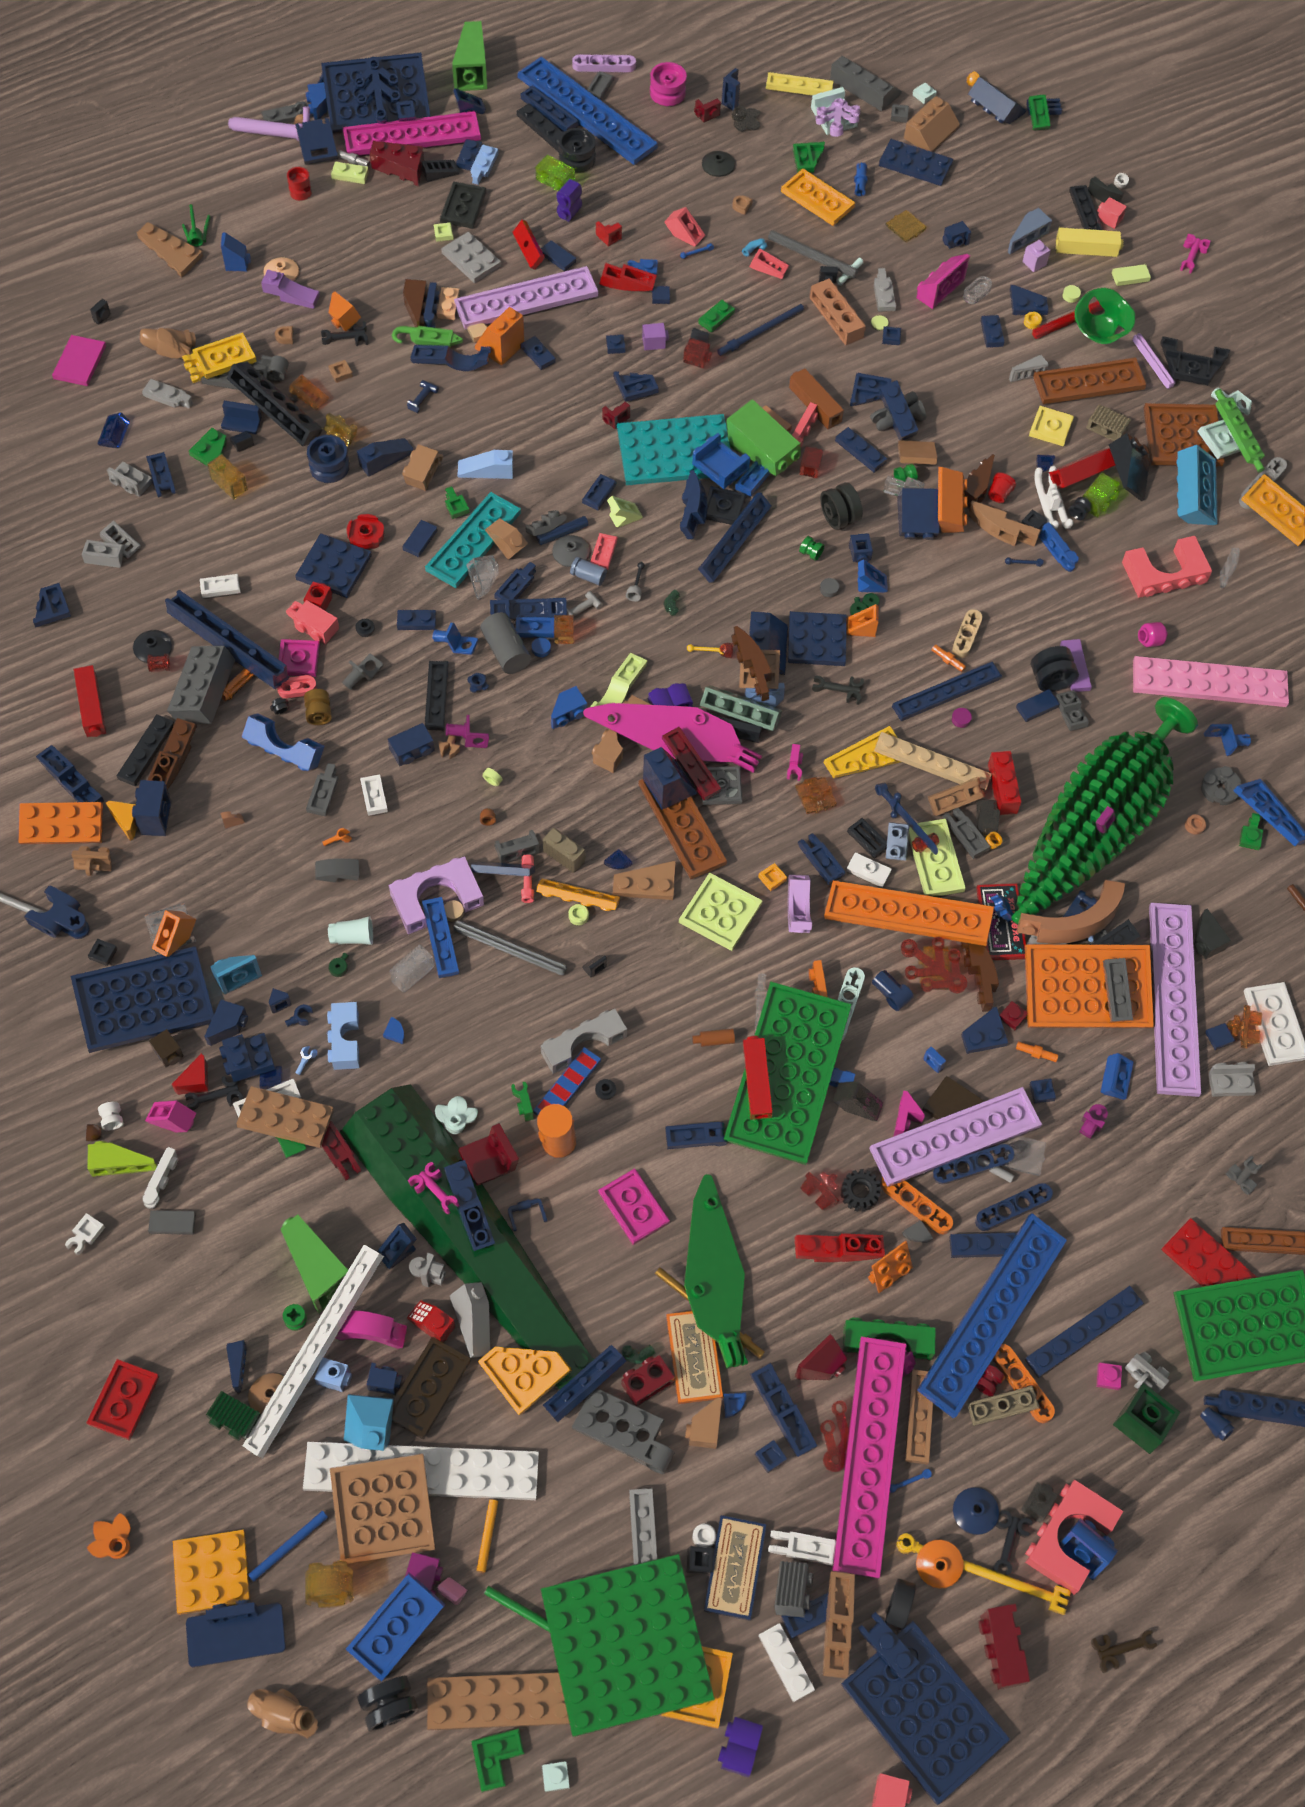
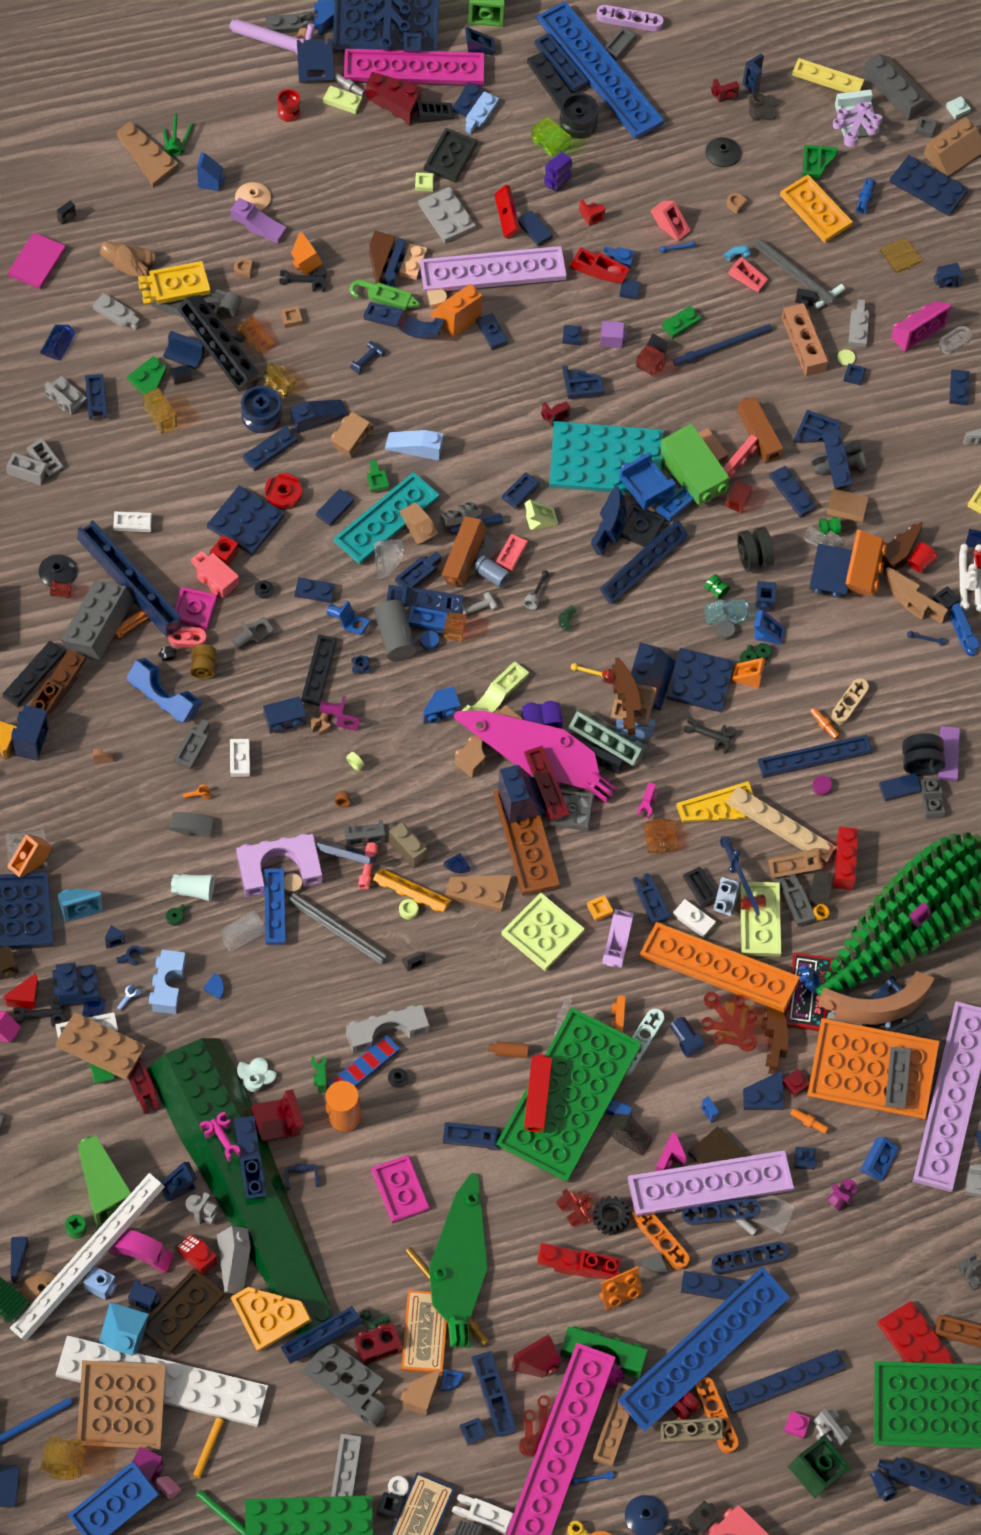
camera: 10 degrees right, 0 degrees up
(226, 1022) = (62, 948): dark blue slope -> none
(344, 494) = (270, 448): none -> dark blue plate
(557, 556) = (464, 551): none -> dark orange brick
(668, 84) = (689, 55): dark pink wheel -> none
(831, 567) = (726, 609): none -> clear light blue slope

